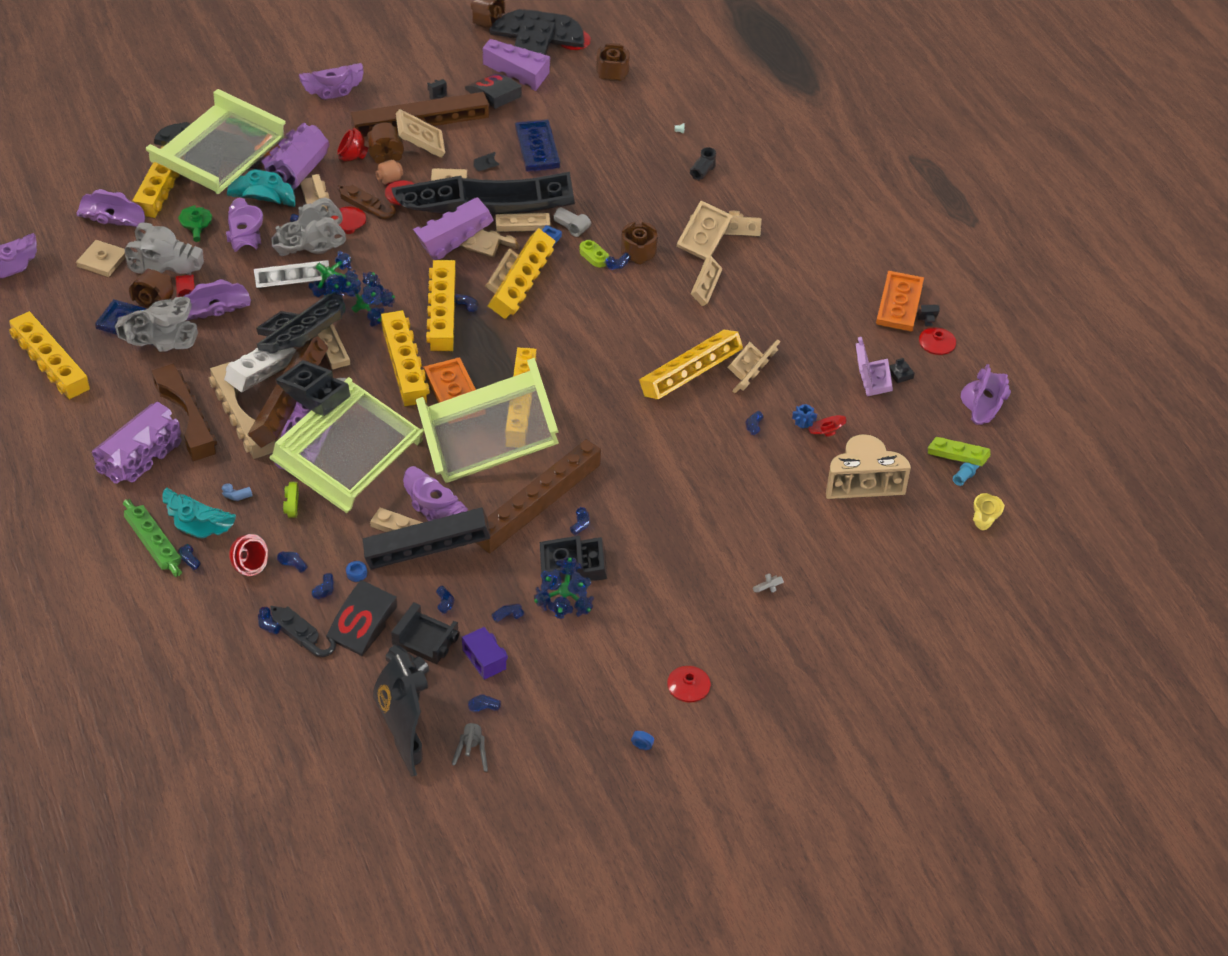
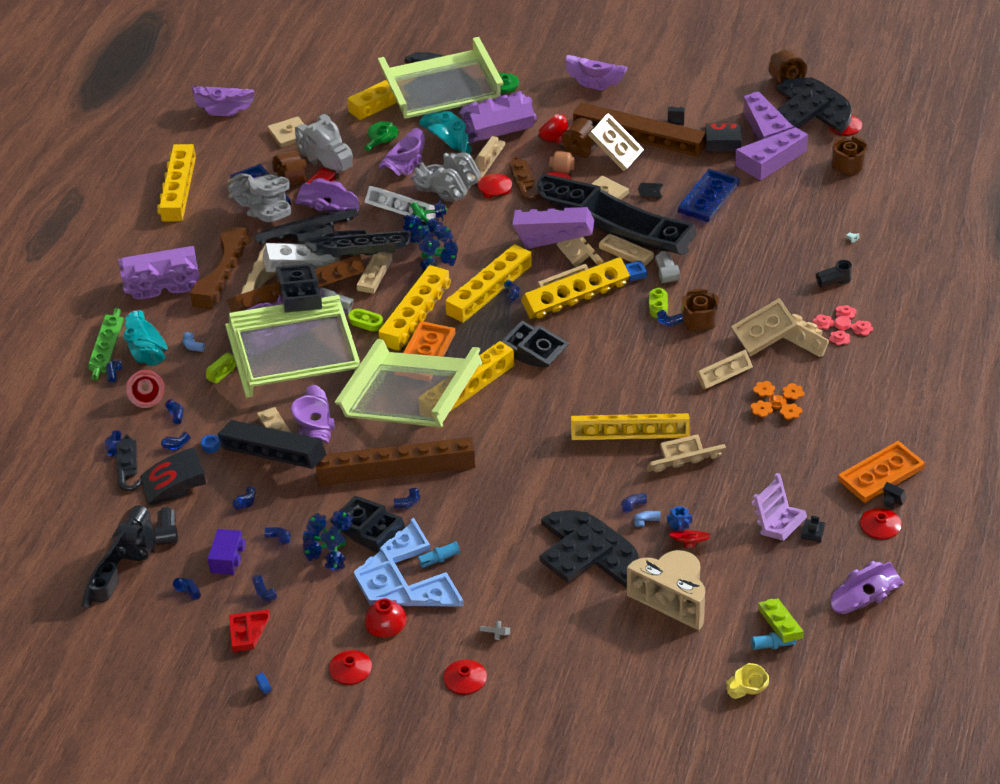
camera: 45 degrees right, 5 degrees down
(125, 211) = (338, 107): medium lavender piece -> none
(232, 334) = (307, 228): none -> black plate
(377, 388) = (365, 319): none -> lime plate
(424, 635) = (201, 513): black panel -> none
(471, 738) = (150, 604): dark grey plant -> none
(544, 335) = (535, 345): none -> black slope
(549, 88) = (771, 153): none -> medium lavender wedge
(551, 667) = (261, 590): none -> clear blue arm
(575, 706) = (247, 629): none -> red wing
(643, 600) = (382, 579): none -> light blue wing
(658, 550) = (439, 554): none -> dark azure pin
(675, 627) = (385, 618): none -> red piece
(748, 200) = (843, 323): none -> coral plant
(763, 477) = (585, 543): none -> black plate
(769, 286) = (777, 401): none -> orange plant
(776, 428) = (640, 518): none -> medium blue arm
(783, 641) = (465, 677): none -> red dish

